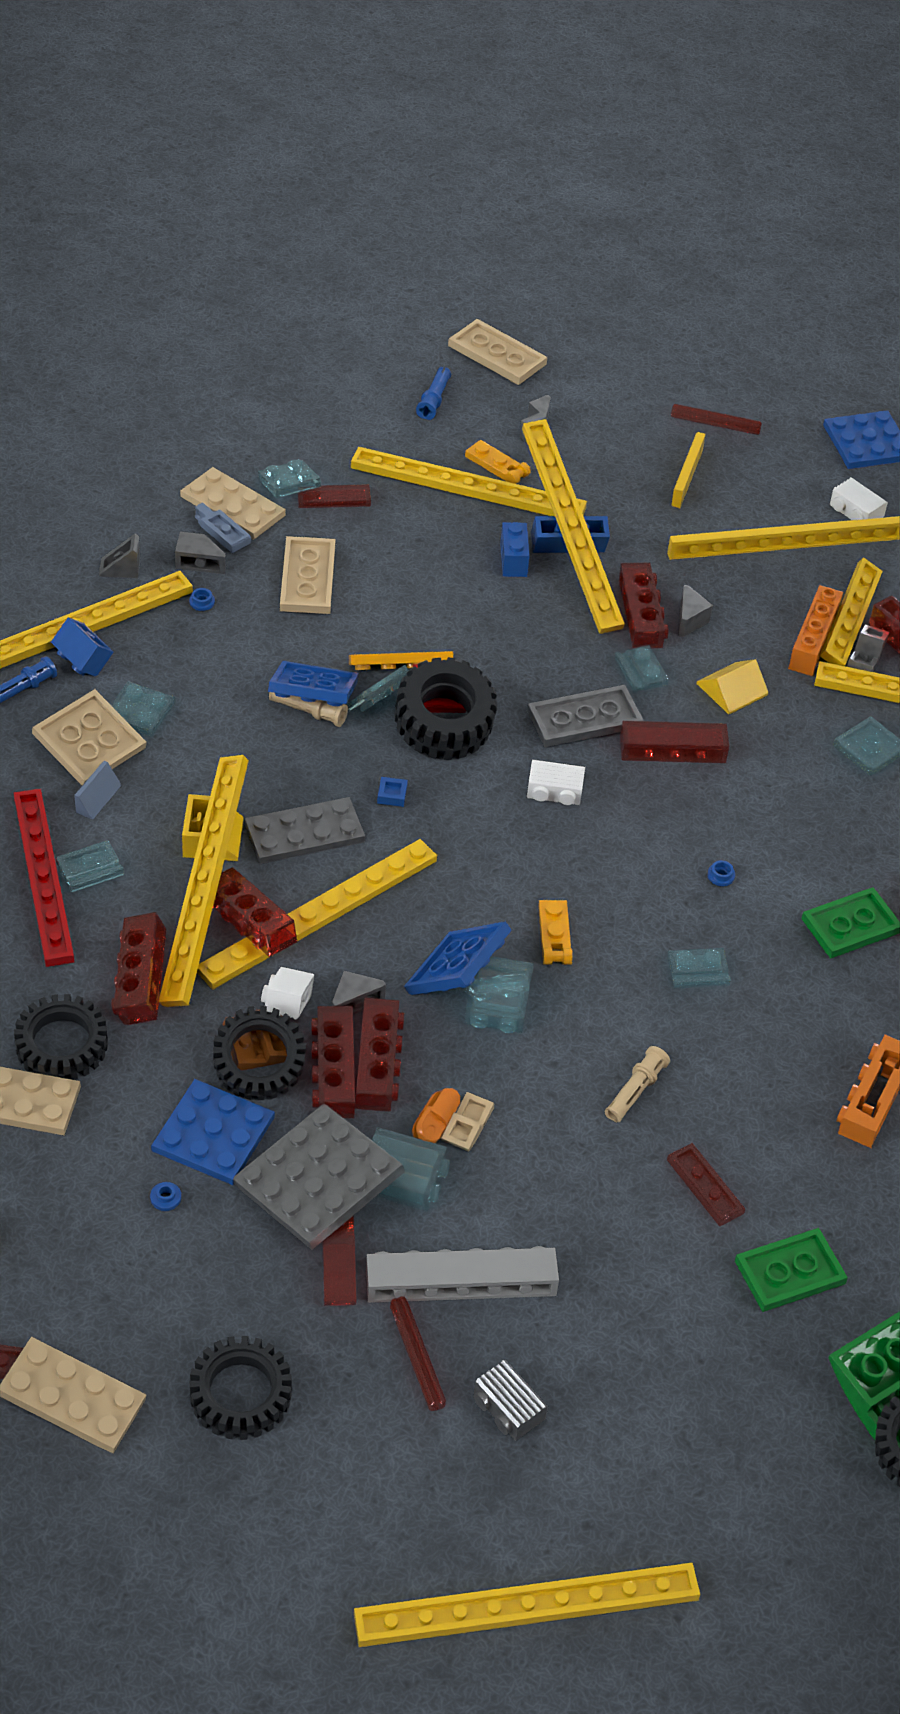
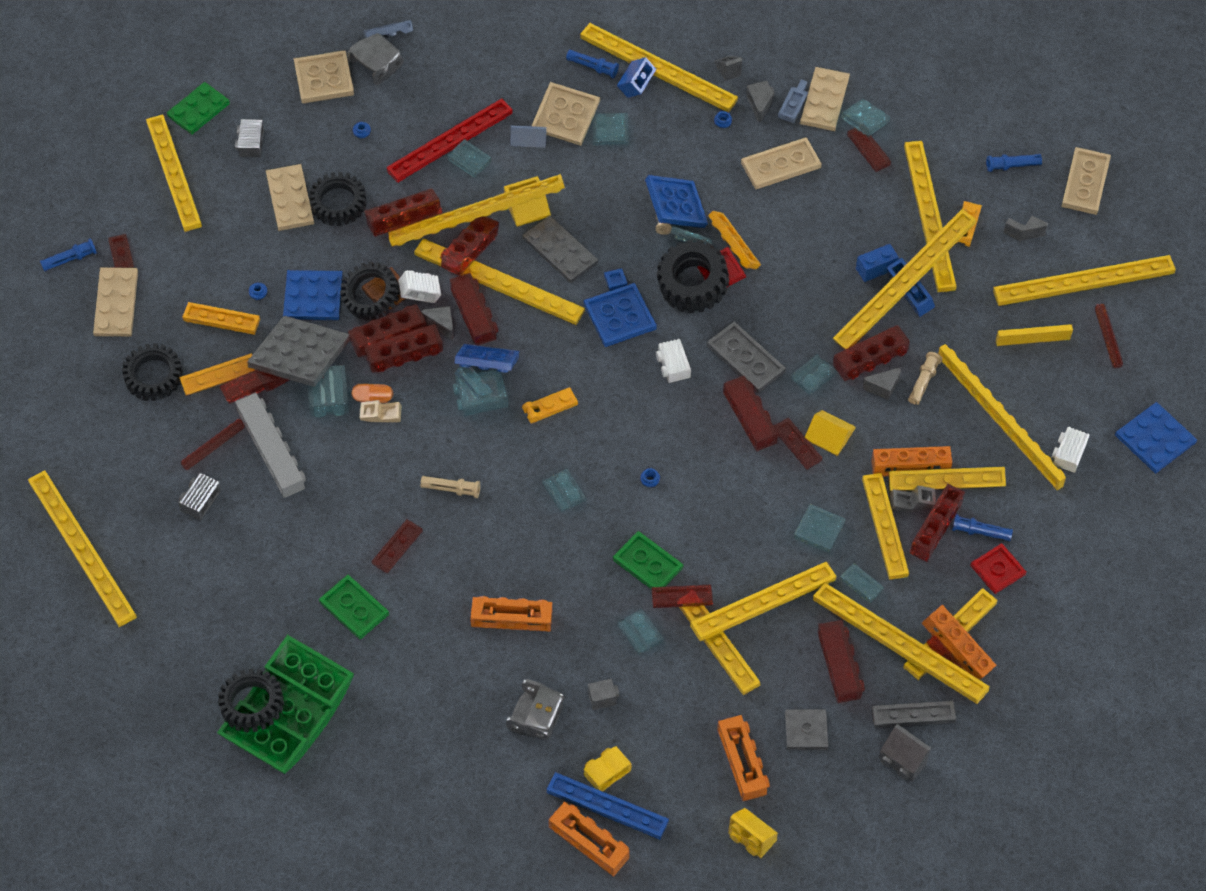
camera: 70 degrees right, 10 degrees up
(189, 1261) = (221, 318): none -> light orange plate
(295, 1300) = (215, 375): none -> light orange plate
(355, 952) = (473, 309): none -> clear red brick
(451, 808) = (619, 315): none -> blue plate
(632, 408) = (1084, 280): none -> yellow plate
(691, 571) = (927, 371): none -> tan pin
(740, 719) = (798, 444): none -> clear red tile

